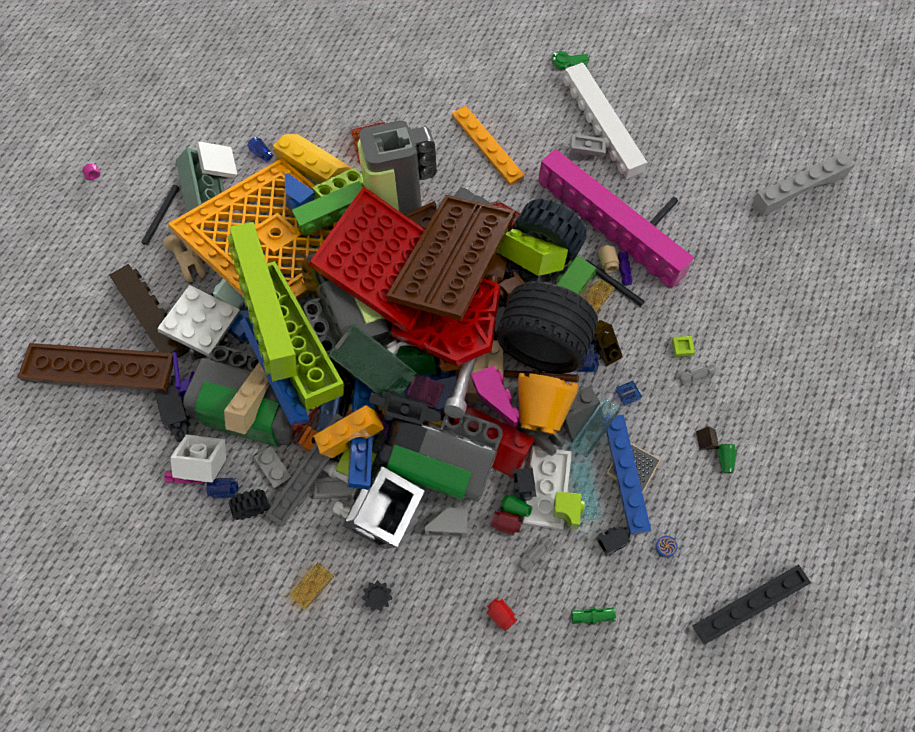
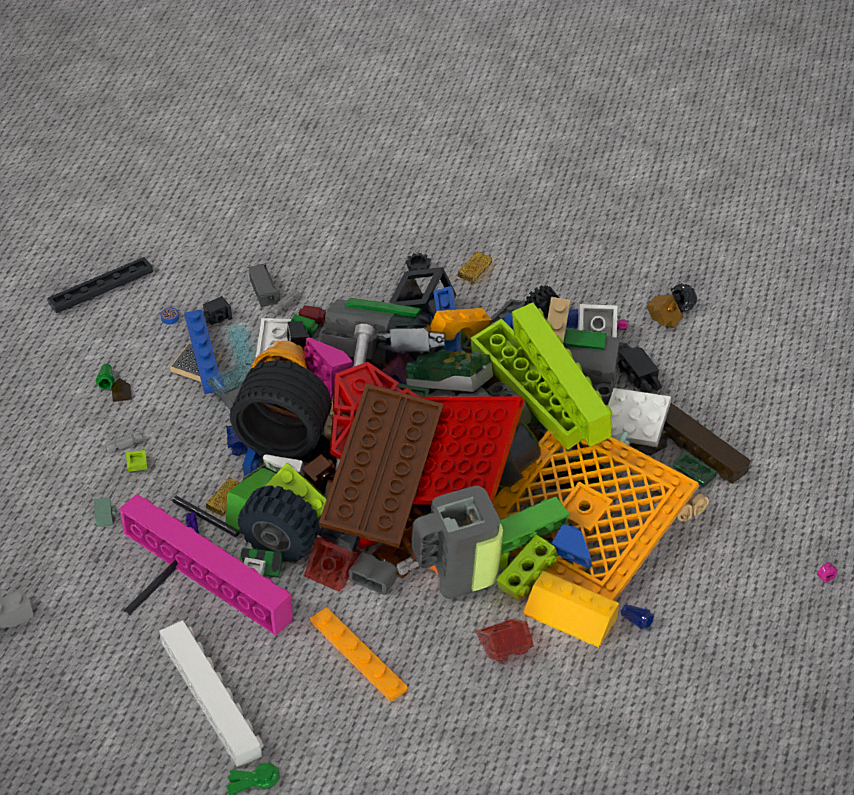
camera: 175 degrees right, 20 degrees down
(92, 499) = (684, 296): none -> black piece
(97, 367) = (726, 387): reddish brown plate -> none
(119, 483) = (664, 310): none -> pearl gold brick
(159, 216) = (727, 540): black piece -> none
(162, 284) = (694, 469): none -> clear green plate
(182, 386) = (627, 370): dark purple plant -> none
(196, 185) = (690, 568): sand green slope -> none
(216, 160) = (683, 592): white tile -> none
(501, 614) = (313, 261): red brick -> none
(561, 578) = (263, 285): none -> dark grey window
(569, 508) = (257, 322): lime brick -> none
(586, 145) = (239, 648): light grey plate -> none
(593, 615) = (234, 269): green pin -> none
(606, 343) = (220, 454): dark brown slope -> none
(608, 259) = (211, 529): tan brick -> none
(628, 393) = (196, 420): clear blue tile -> none
(707, 289) = (104, 512): none -> sand green plate

